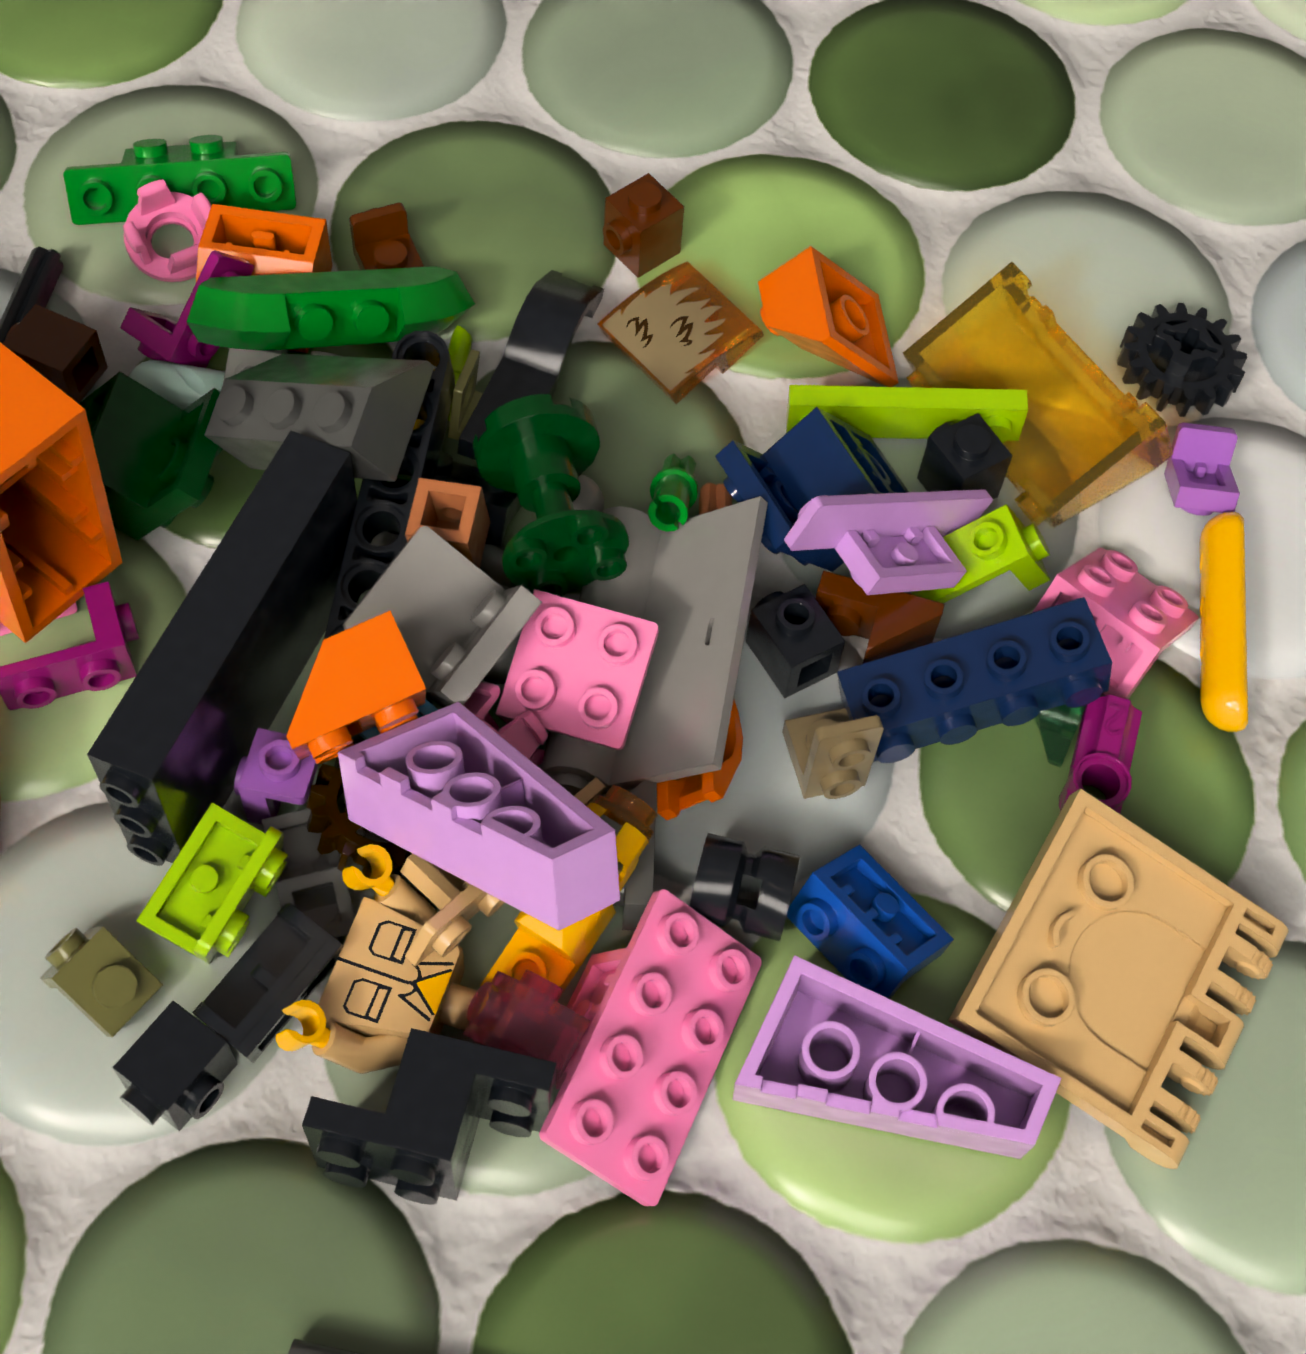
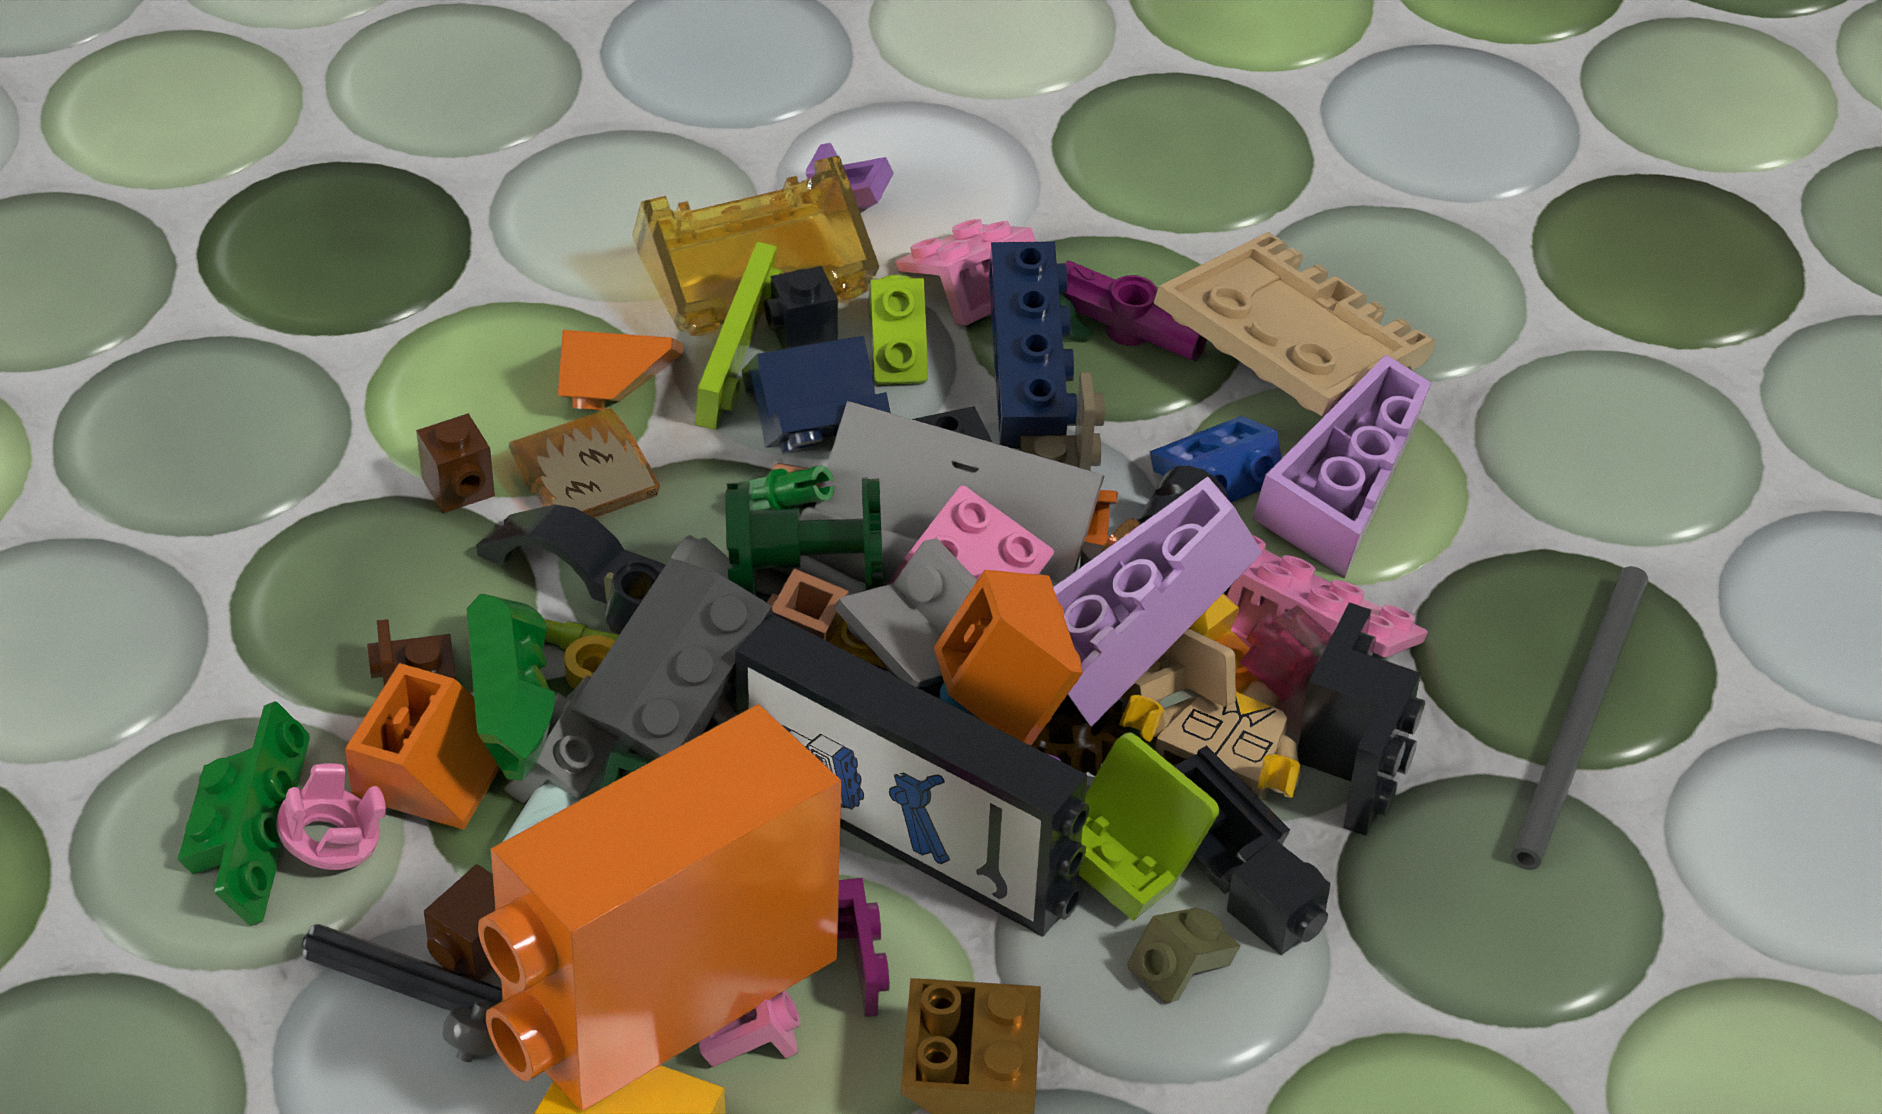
camera: 75 degrees left, 15 degrees down
(173, 341) = (490, 798): magenta bracket -> none
(888, 620) = (946, 387): reddish brown slope -> none
(891, 537) = (900, 352): lavender bracket -> none
(1181, 359) = (726, 162): black gear -> none
(1223, 623) = (974, 198): yellow piece -> none

